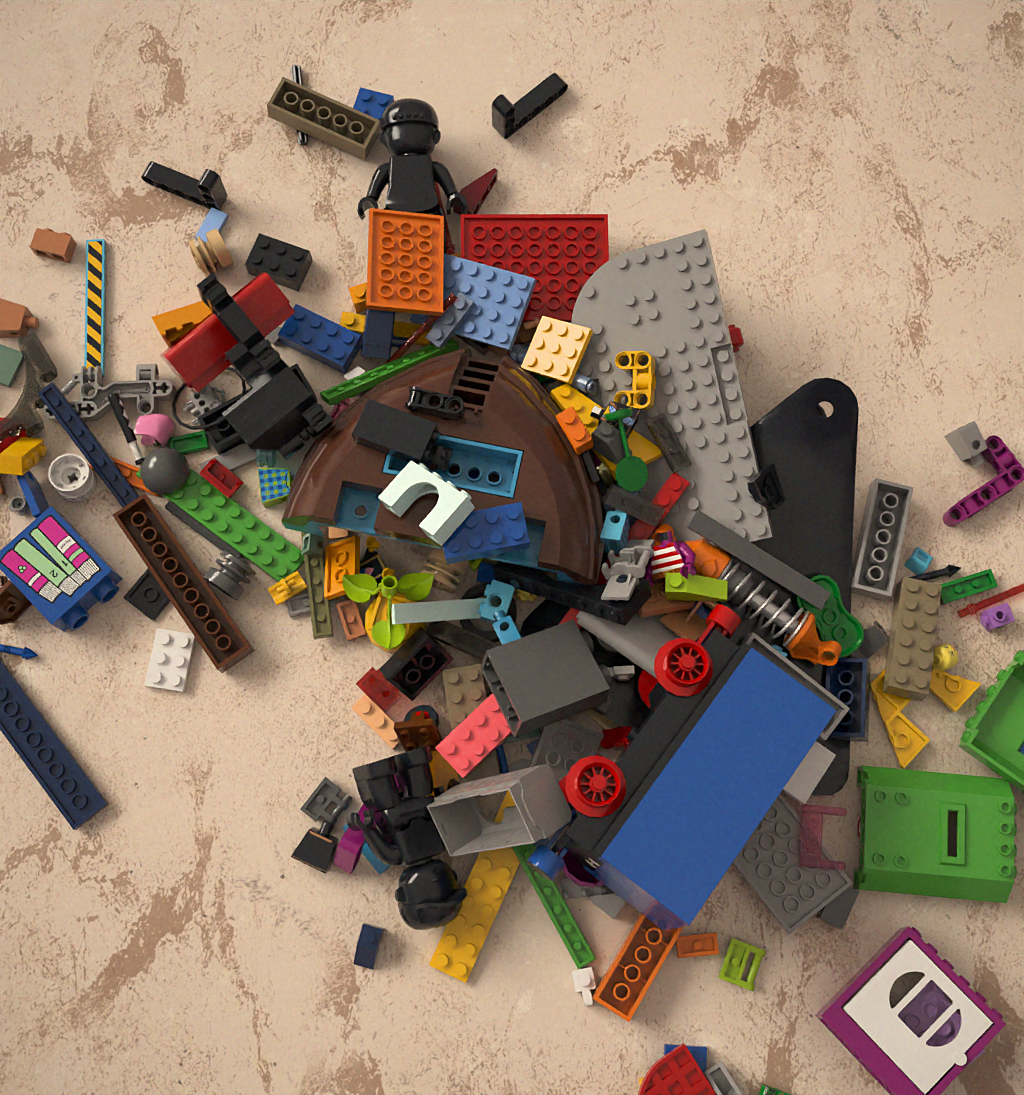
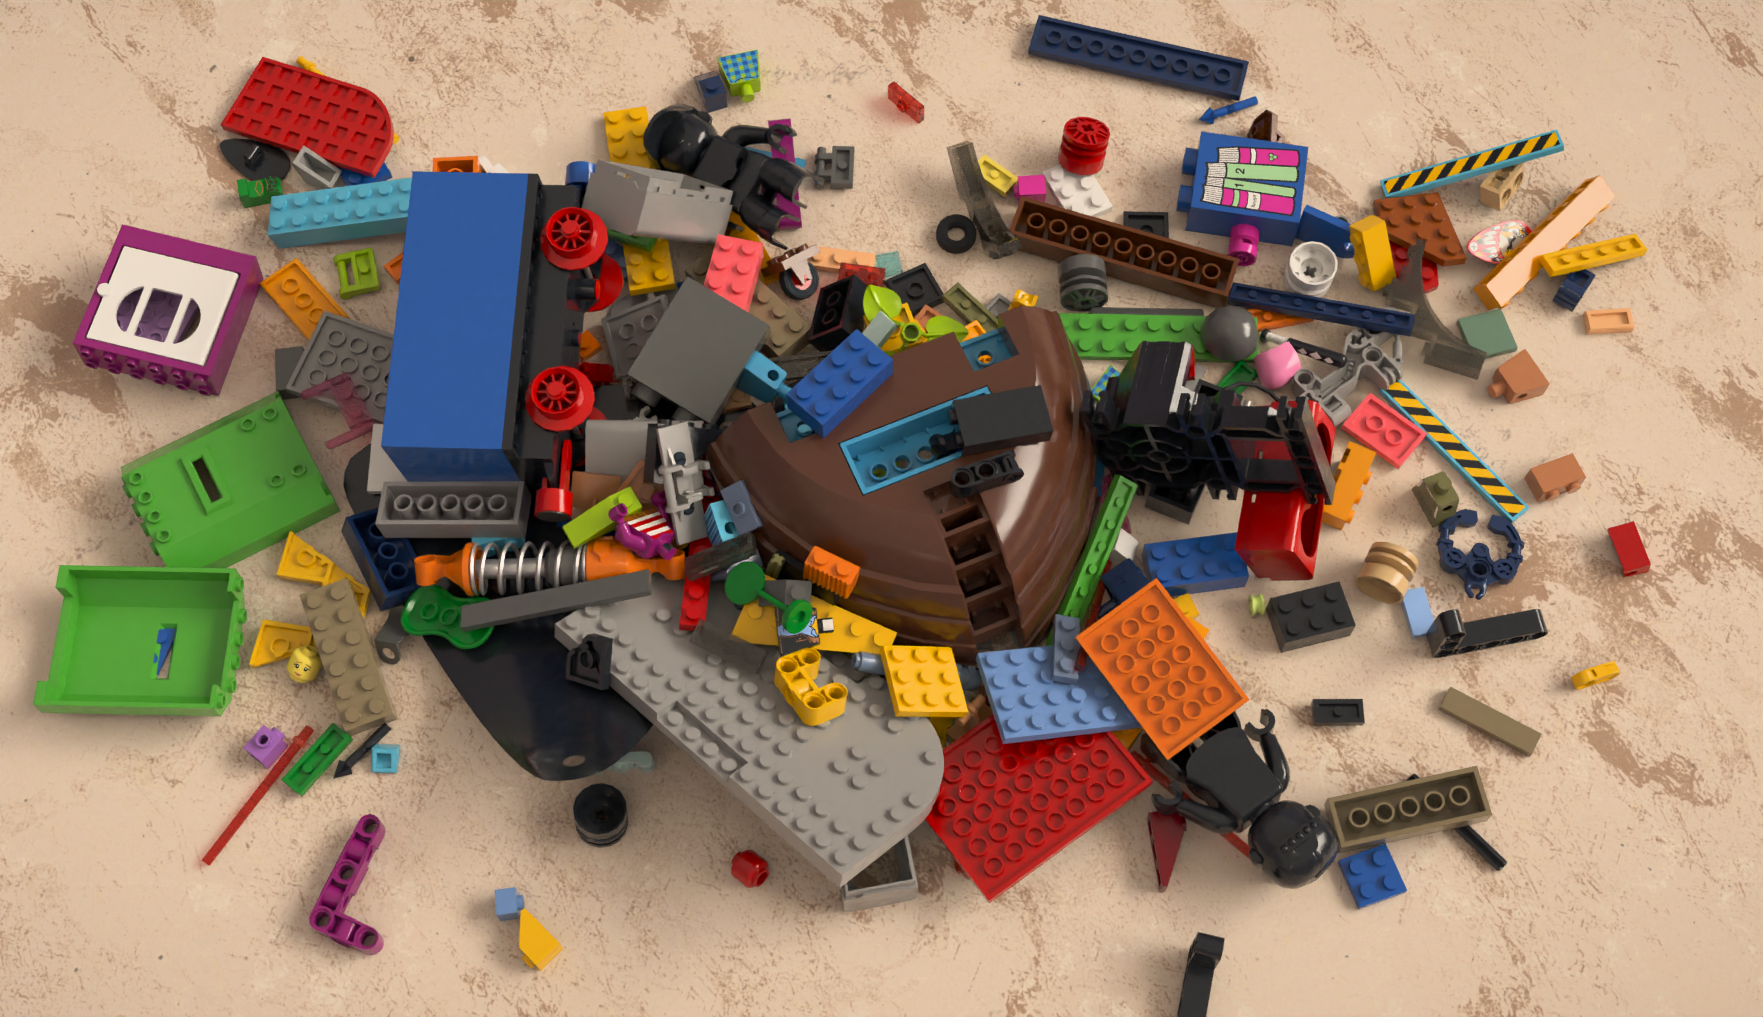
camera: 145 degrees right, 10 degrees down
(53, 176) = (1629, 549): none -> red hinge
(96, 532) = (1244, 243): none -> dark pink wheel
(125, 344) = (1384, 431): none -> coral plate
(137, 277) = (1434, 495): none -> olive torso
(138, 682) = (1083, 145): none -> red wheel
(146, 123) = (1595, 675): none -> yellow piece
(146, 230) = (1479, 560): none -> dark blue piece
(203, 680) = (1030, 187): none -> dark pink brick
(218, 712) = (996, 176): none -> light yellow plate
(229, 142) = (1490, 721): none -> dark tan tile
(233, 822) = (905, 102): none -> clear red plate
(252, 682) = (994, 235): none -> clear smoke arch
(273, 676) = (956, 221): none -> black tyre
(303, 292) = (1256, 604): none -> yellowish green bush
(311, 201) = (1338, 712): none -> black plate
(317, 847) = (813, 126): black torso -> none
(336, 939) = (741, 74): none -> torso
(344, 660) = (916, 288): none -> black tile
(347, 694) = (891, 262): none -> clear light blue tile
(417, 481) = (885, 370): light aqua arch -> none
(601, 522) = (740, 507): none -> sand blue plate
(715, 1010) = (339, 213): none -> medium azure brick
(795, 969) = (300, 296): none -> light orange tile
(880, 539) = (440, 744): light grey brick -> none
(886, 378) = (536, 942): none -> yellow slope
(891, 413) = (508, 904): none -> medium blue plate
(967, 443) = (400, 921): light grey torso -> none

